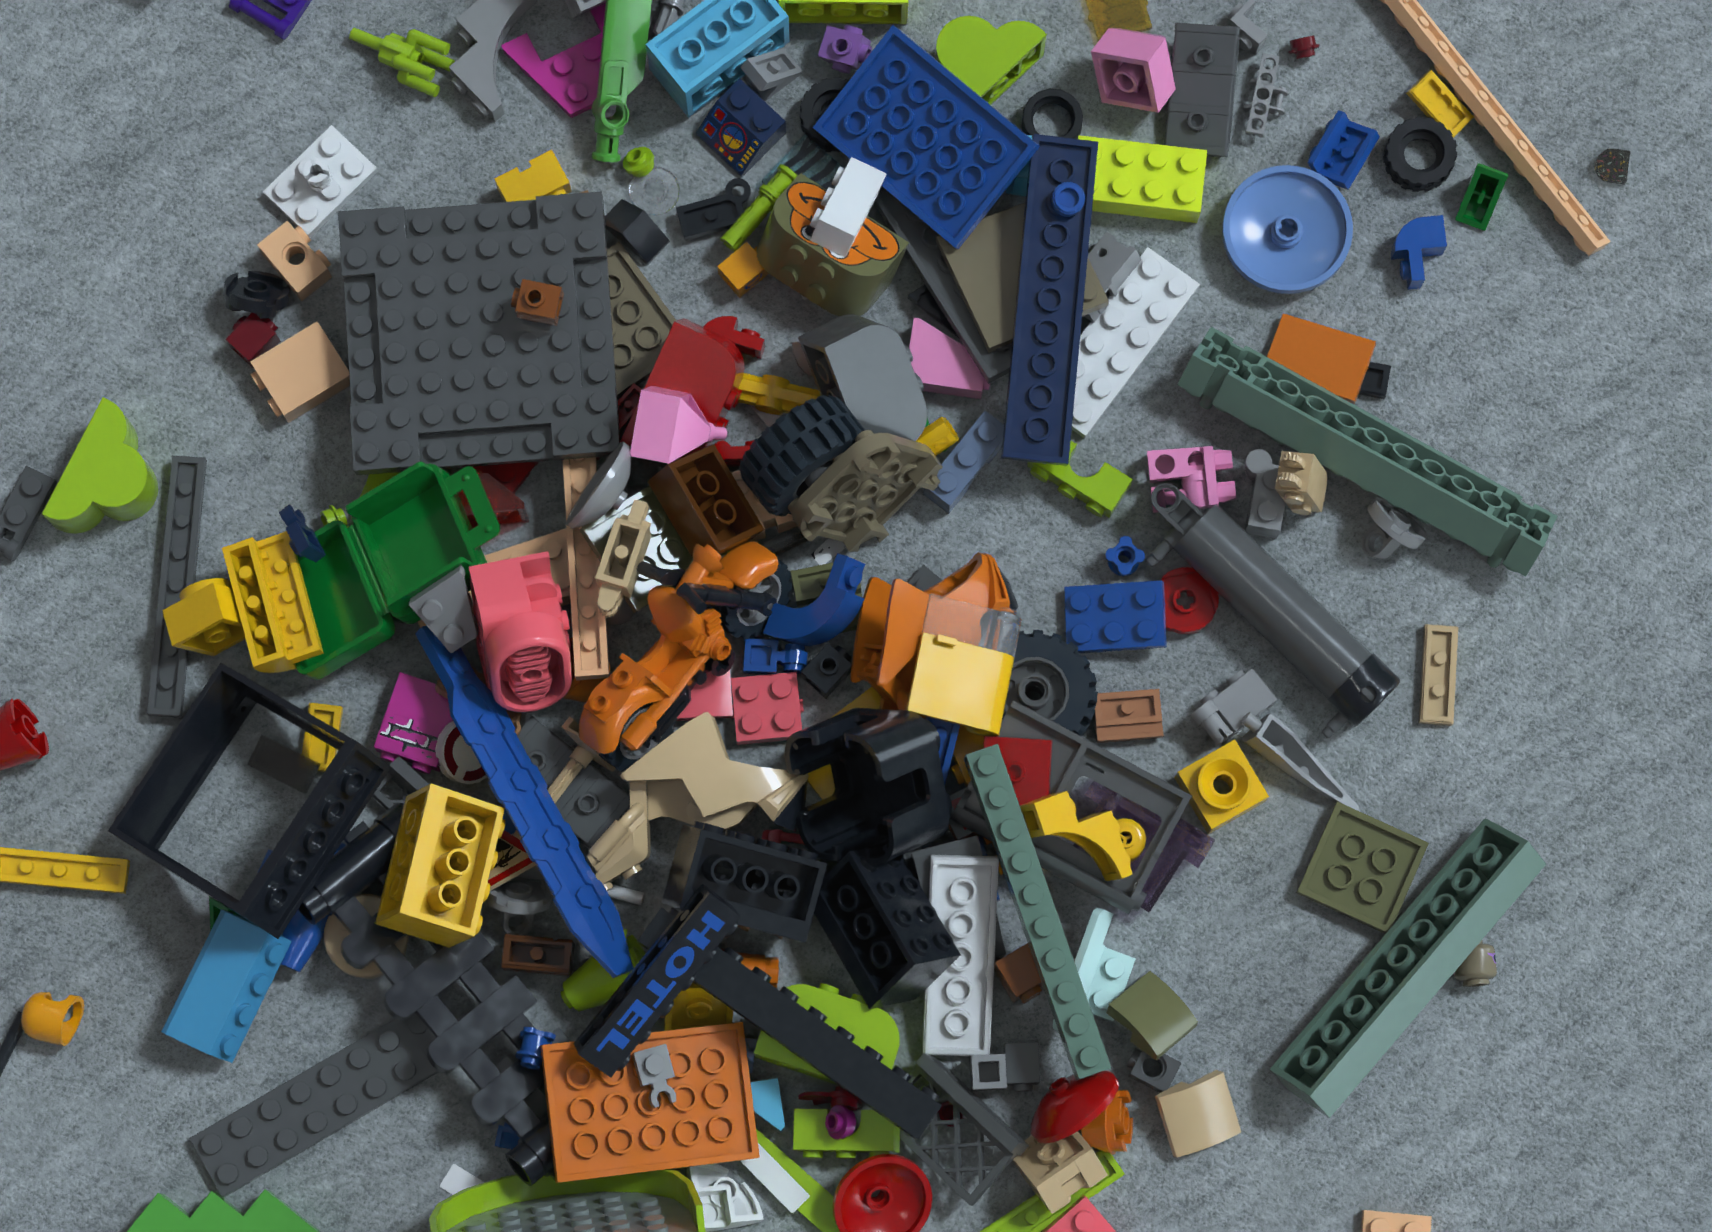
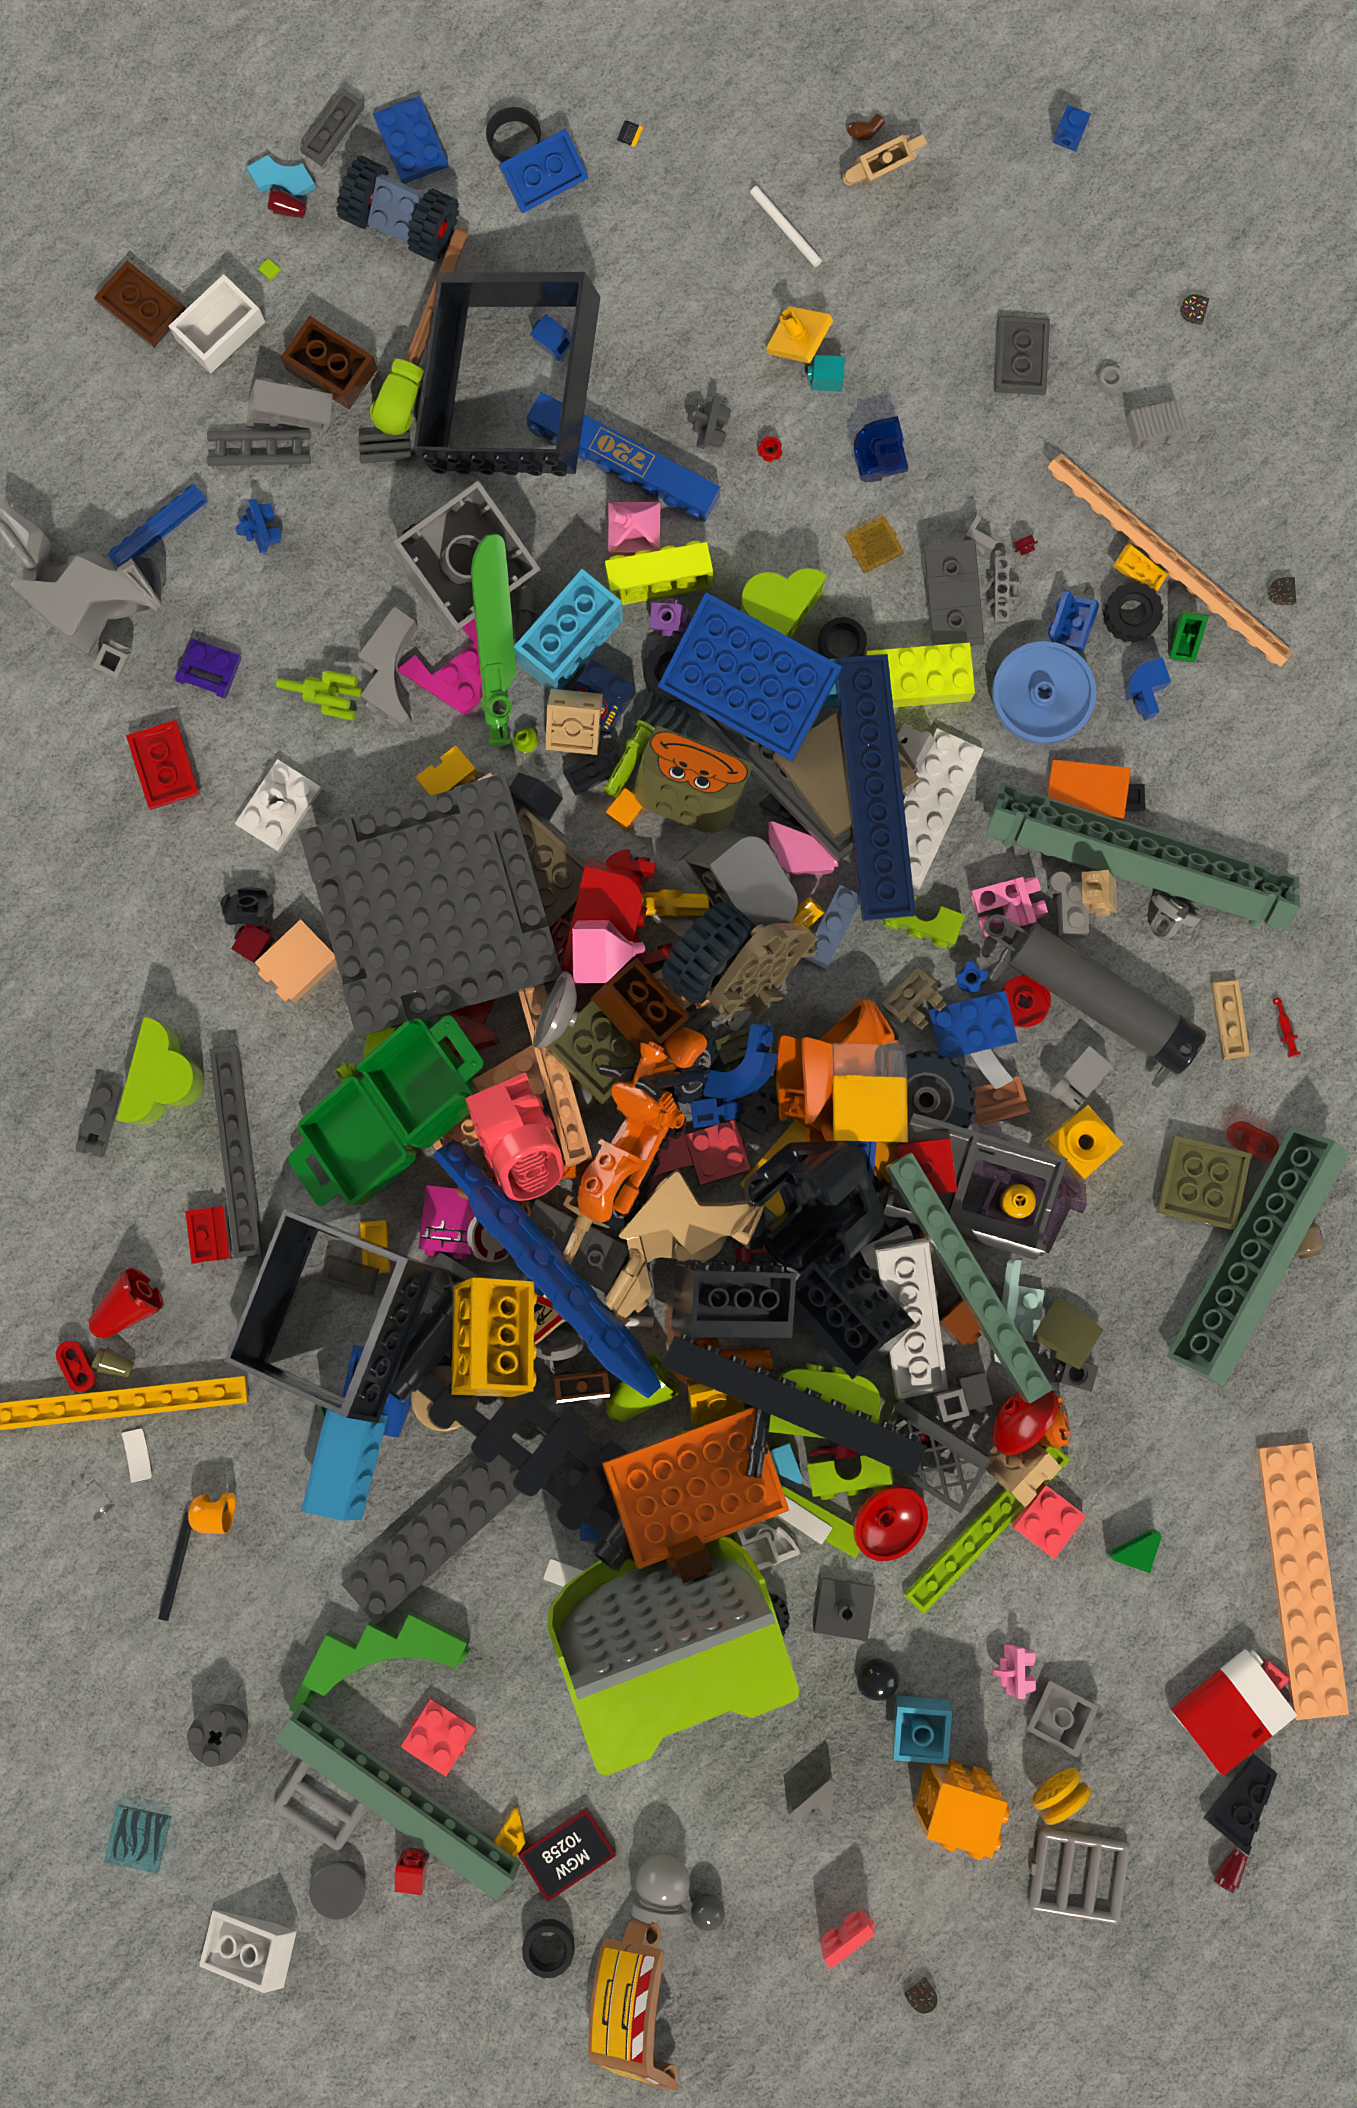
camera: 15 degrees left, 5 degrees up
(121, 680) = (208, 1234): none -> red plate
(191, 104) = (163, 765): none -> red plate
(205, 618) = (269, 1173): yellow piece -> none
(272, 603) = (314, 1153): yellow brick -> none
(301, 278) = (283, 884): light nougat brick -> none
(302, 537) = (327, 1096): dark blue plate -> none
(448, 610) = (455, 1134): light grey wing -> none
(530, 1048) = (594, 1462): blue brick -> none
(544, 311) = (481, 880): dark orange brick -> none
(620, 1184) = (689, 1559): none -> reddish brown brick
(621, 556) = (585, 1064): tan hinge -> none
(653, 1068) = (694, 1462): light grey plate -> none
(657, 981) = (684, 1397): black brick -> none
(701, 149) = (573, 721): none -> tan piece
(736, 1068) = (757, 1447): none -> black pin
(770, 72) = (614, 648): light grey slope -> none
(840, 1122) = (847, 1470): magenta plate -> none
(846, 206) = (700, 745): white brick -> none
(1045, 564) = (910, 995): none -> dark tan plate
(1067, 199) = (873, 705): blue tile -> none
(1094, 833) = (999, 1203): yellow arch -> none
(1127, 673) = (992, 1068): none -> white sticker
(1133, 69) = (899, 589): bright pink piece -> none
(1198, 1114) = (1118, 1402): tan slope -> none
(1287, 752) = (1130, 1106): light grey piece -> none
(1435, 825) = (1251, 1139): none -> clear red plate
(1506, 702) = (1286, 1029): none -> red piece

